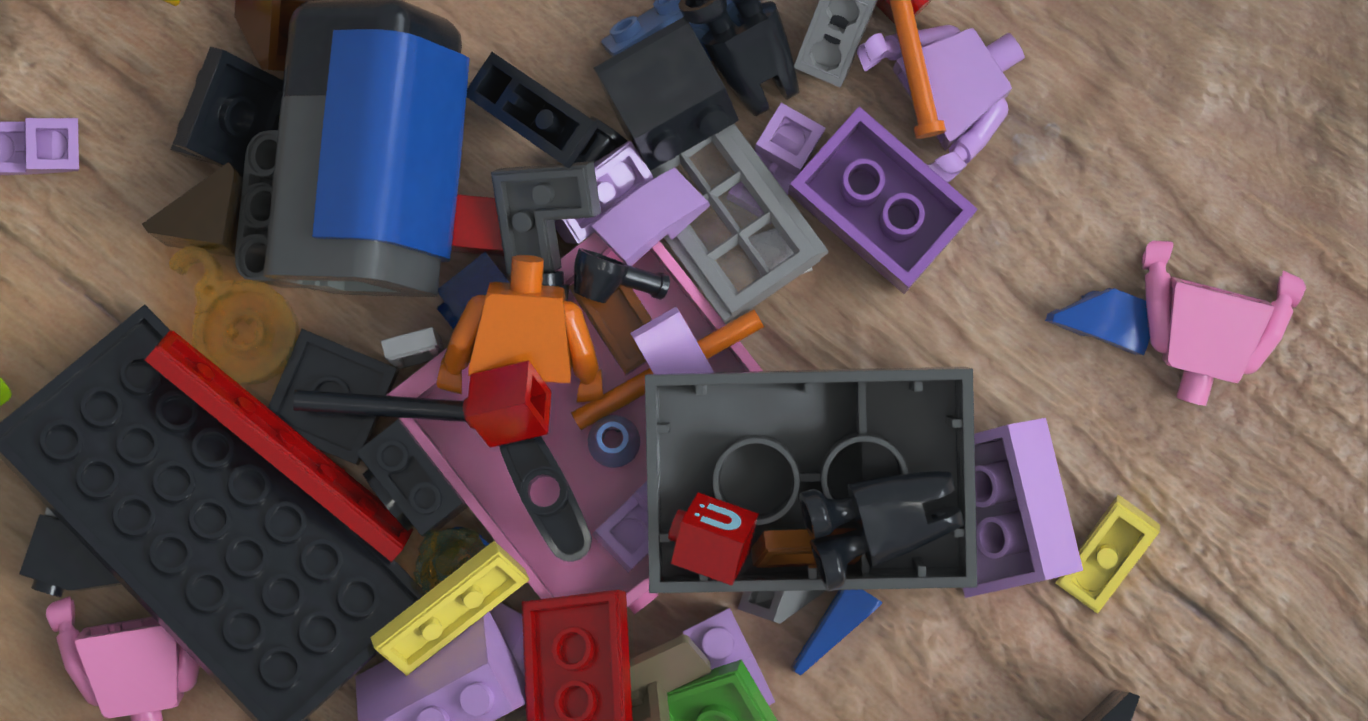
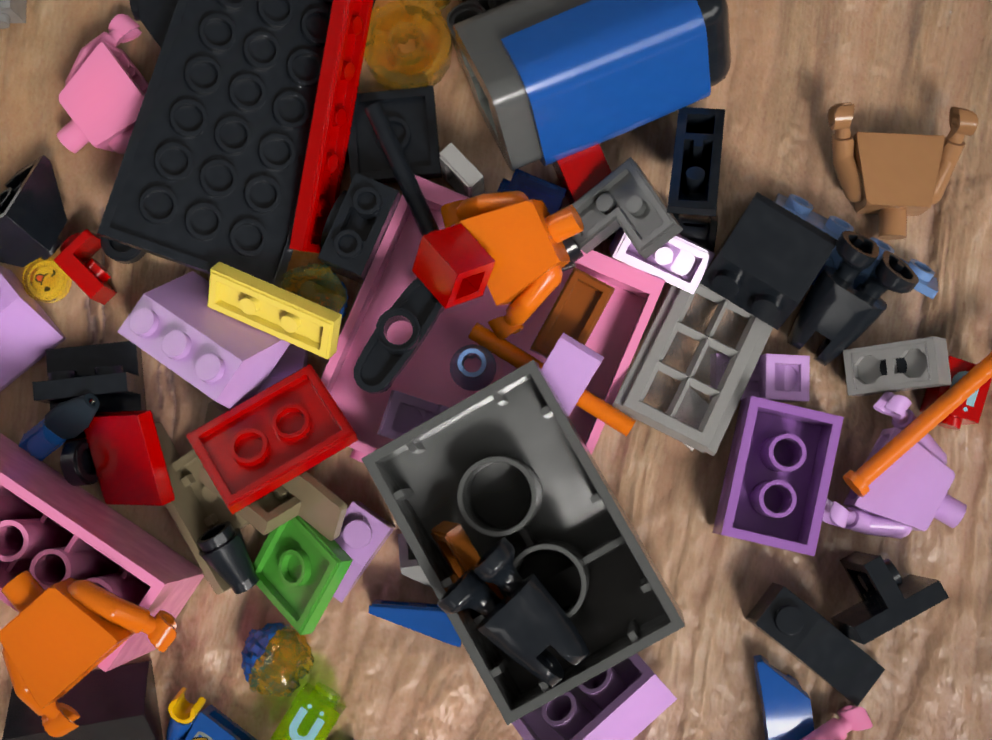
camera: 65 degrees right, 0 degrees up
(600, 276) = (596, 286): black bar -> none
(649, 214) = (664, 298): lavender slope -> none
(712, 538) = (431, 485): red brick -> none
(1057, 165) = (884, 596): none -> black bracket
(1064, 253) = (815, 642): none -> black slope

